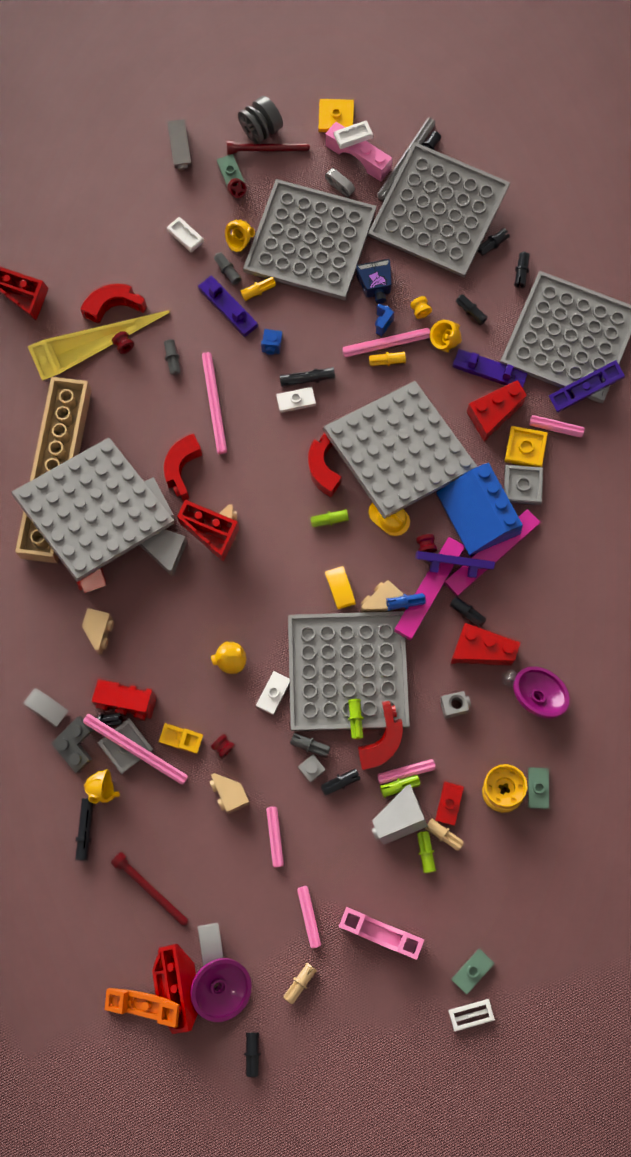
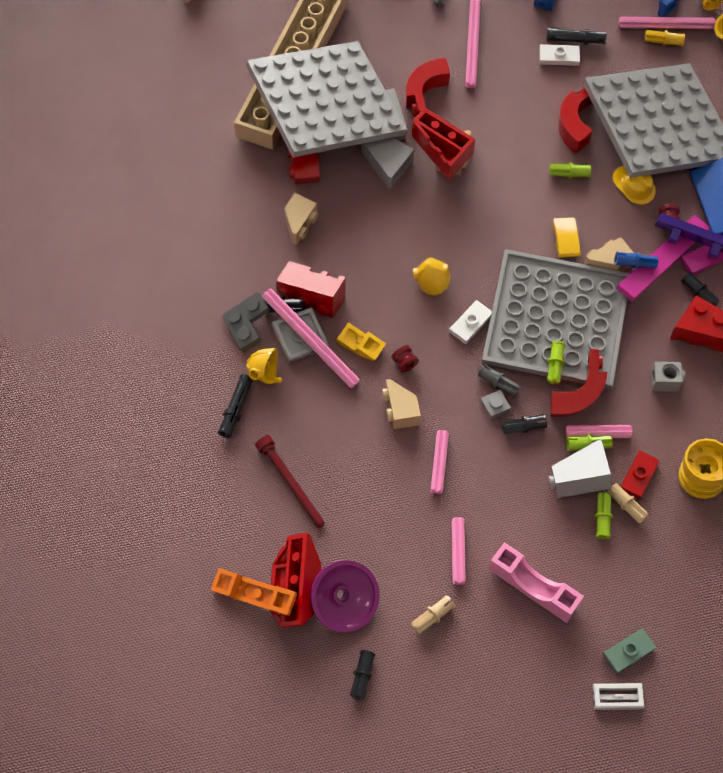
camera: 10 degrees right, 10 degrees down
(45, 707) = (226, 278): light grey slope -> none
(210, 942) = (343, 545): light grey slope -> none

